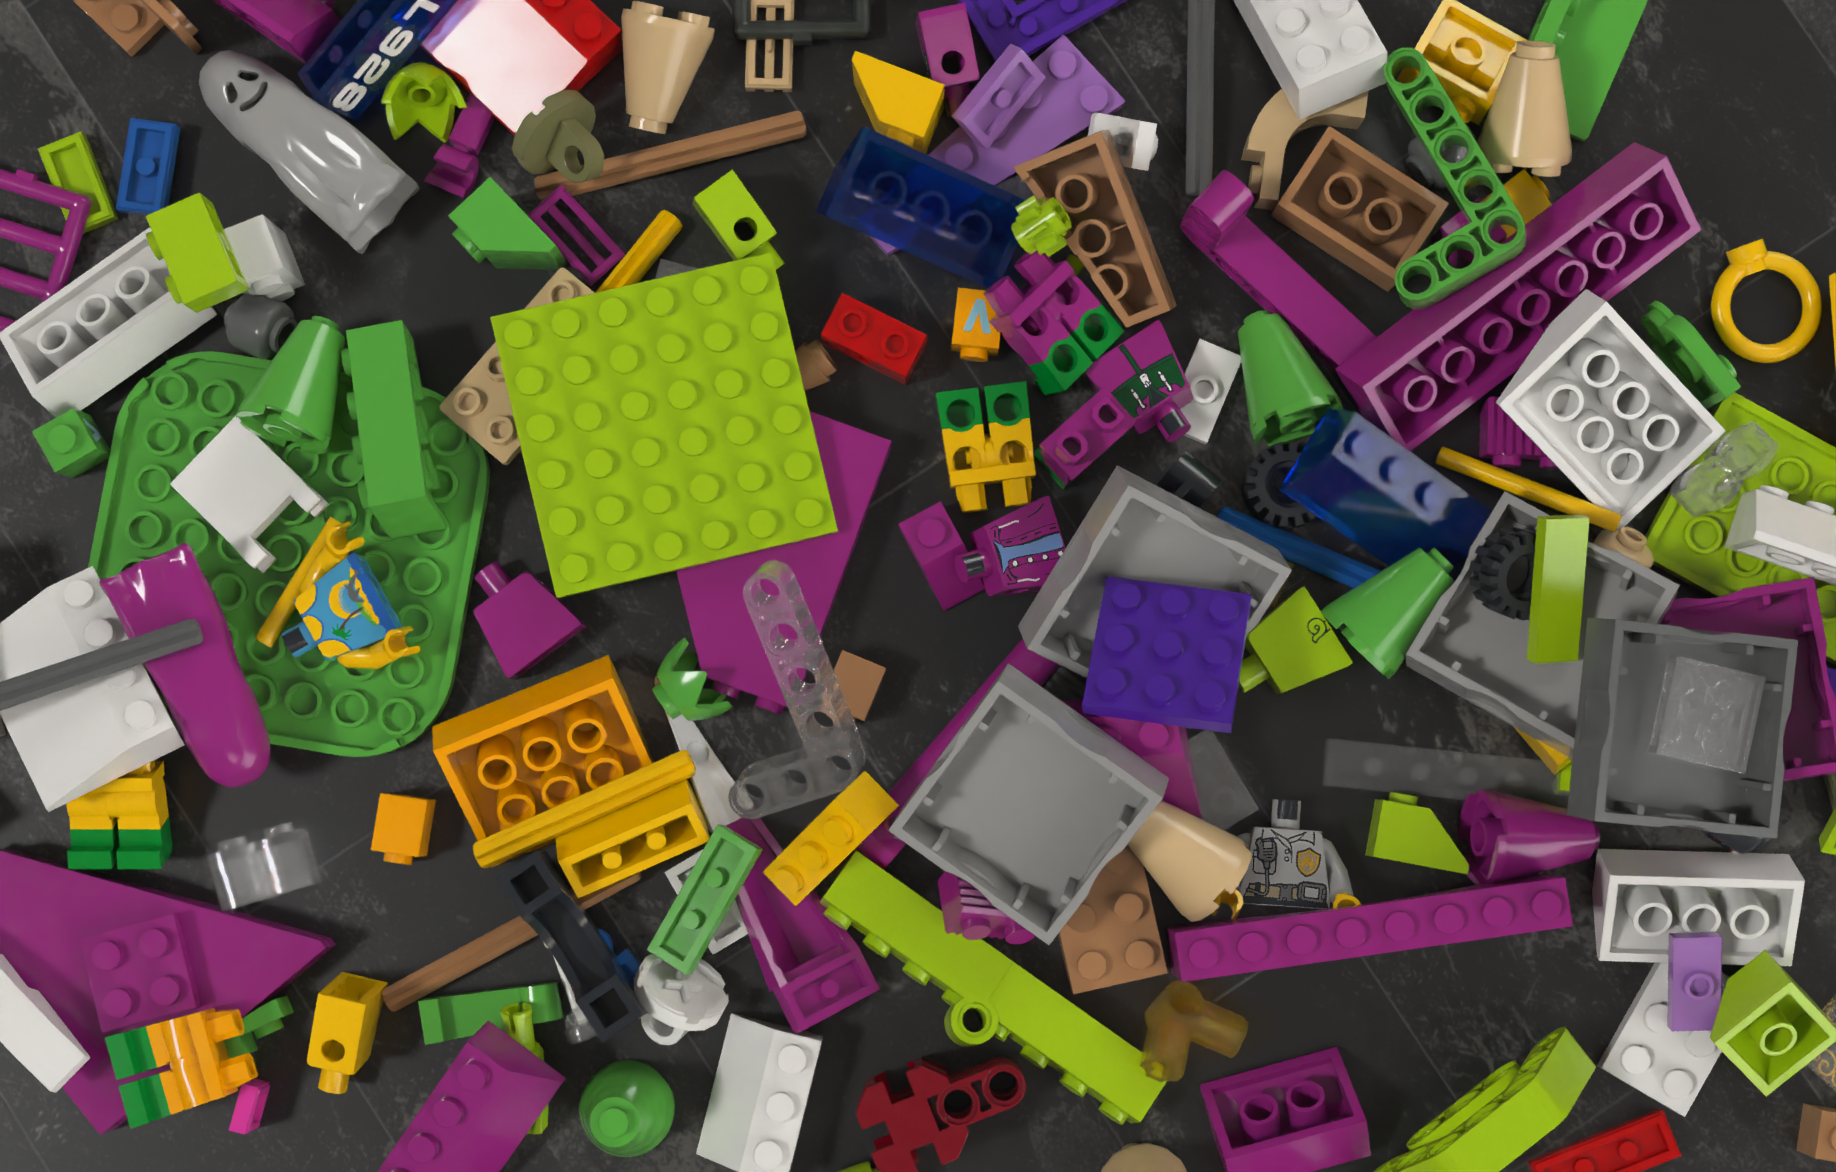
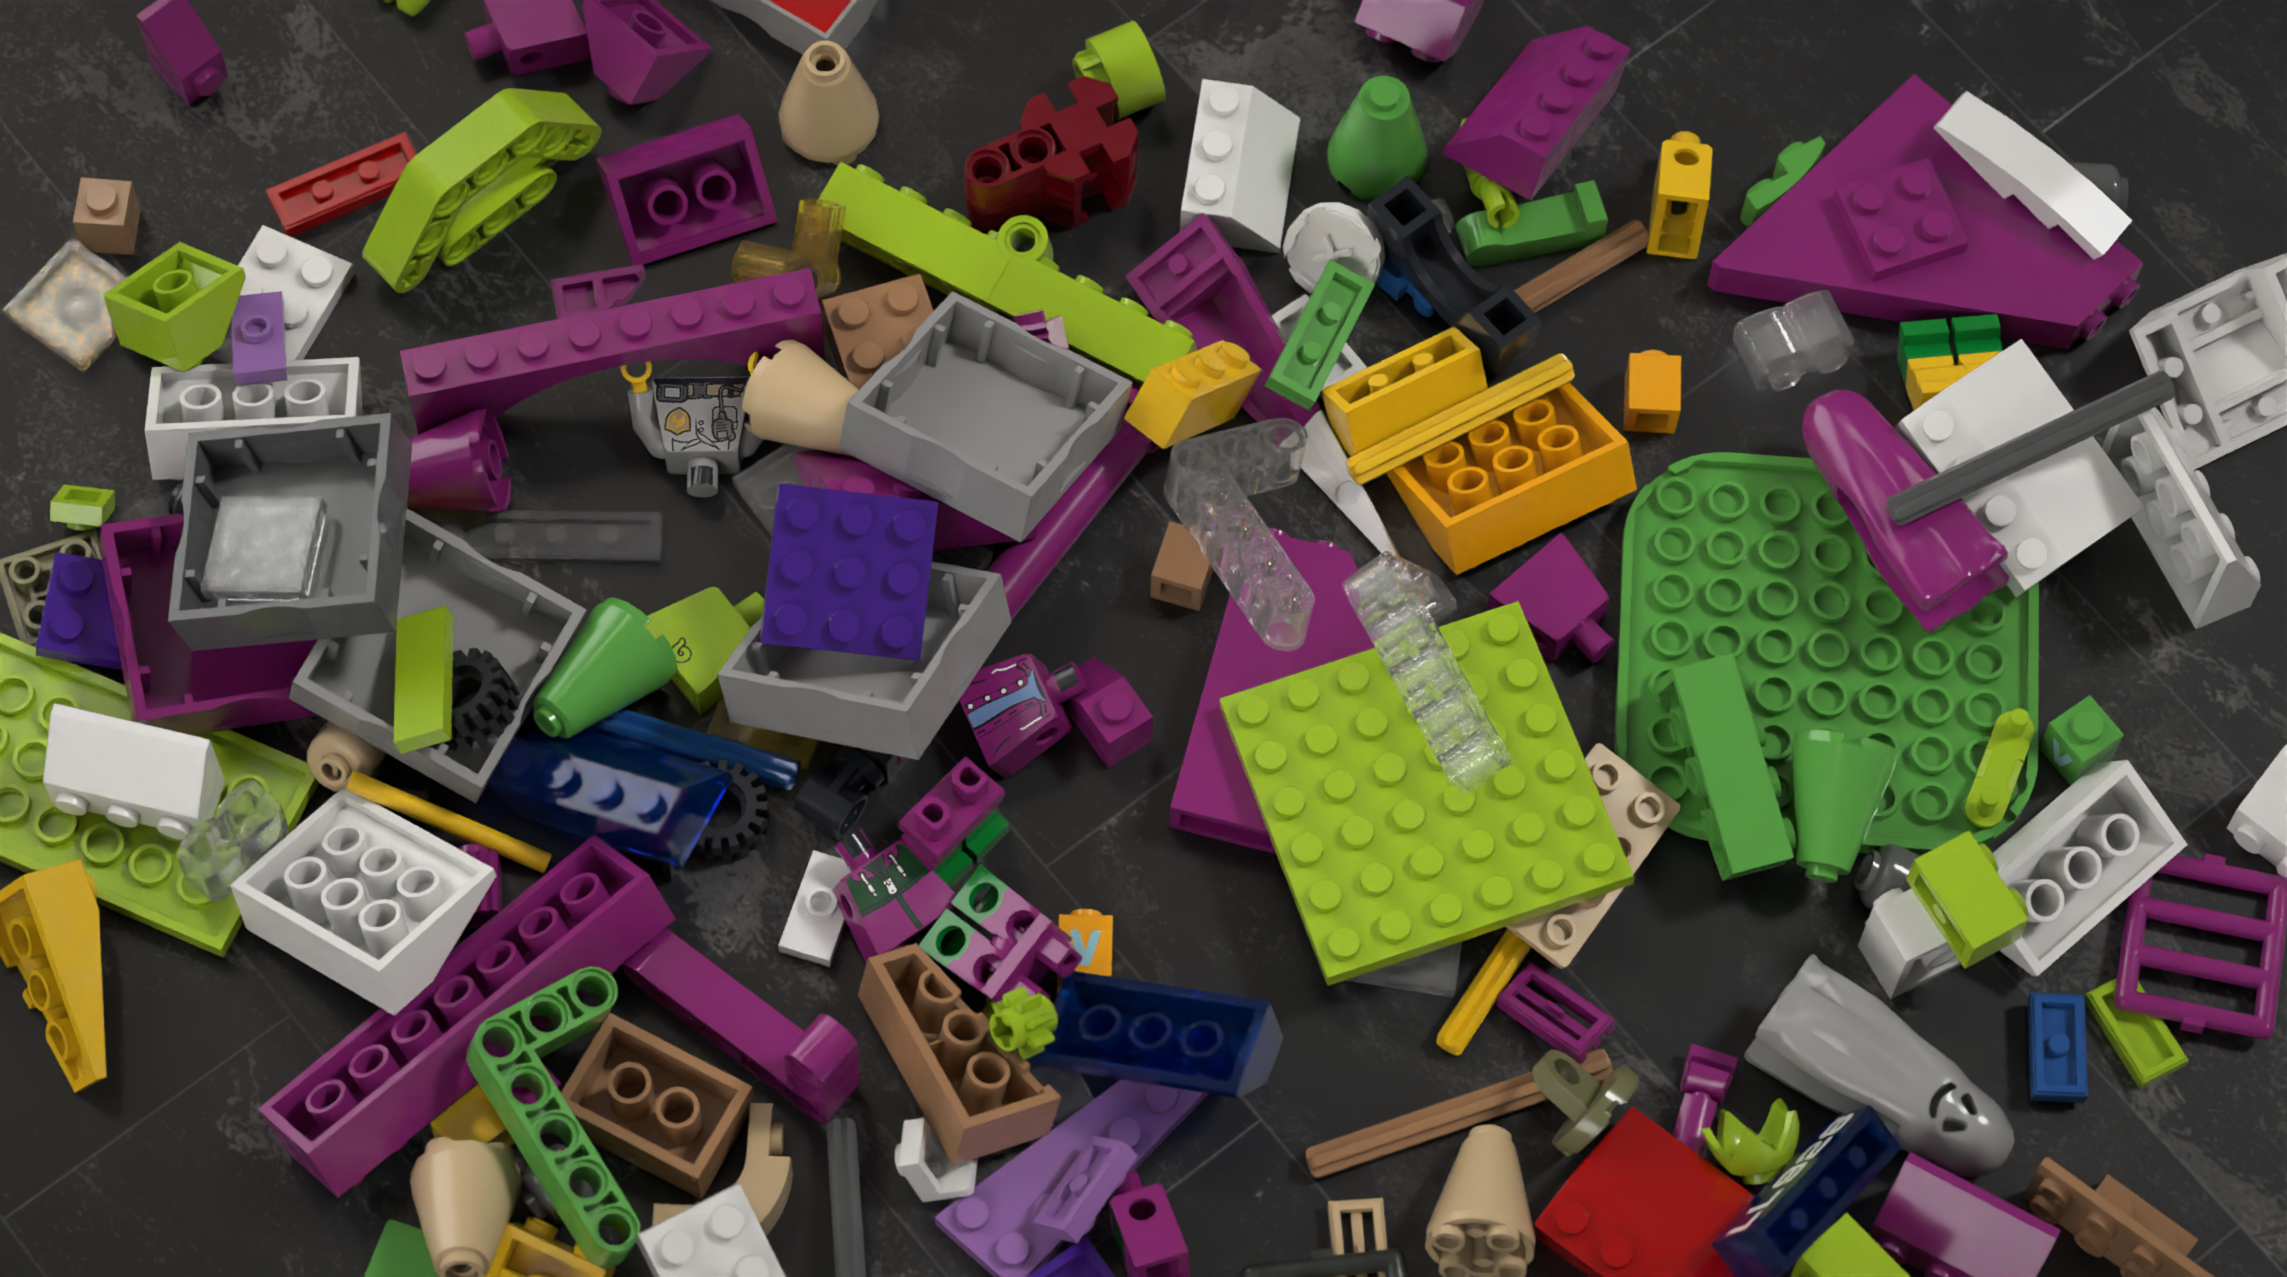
camera: 170 degrees right, 20 degrees down
(150, 421) = (1999, 769): none -> lime piece
(197, 1062) = (1842, 133): light orange hips -> none
(243, 489) = (1880, 698): white flag -> none
(249, 1106) = (1767, 120): dark pink tile -> none
(285, 605) = (1802, 615): yellow bar -> none
(346, 609) = (1741, 577): torso -> none
(500, 230) = (1636, 987): bright green slope -> none
(652, 527) = (1401, 616): none -> clear beam
(682, 687) = (1364, 532): bright green piece -> none
(728, 204) = (1374, 1034): lime torso -> none
(814, 364) = (1267, 895): medium nougat cone -> none
(874, 338) = (1200, 923): red brick -> none
(898, 101) = (1203, 1170): yellow slope -> none
(989, 458) = (1059, 807): yellow hips -> none
(1281, 381) = (734, 912): bright green cone -> none
(1376, 1017) = (596, 290): none -> magenta tile
(1412, 835) = (562, 463): lime slope -> none
(1688, 355) = (258, 956): bright green plate -> none
(1749, 260) = (195, 1098): yellow piece -> none

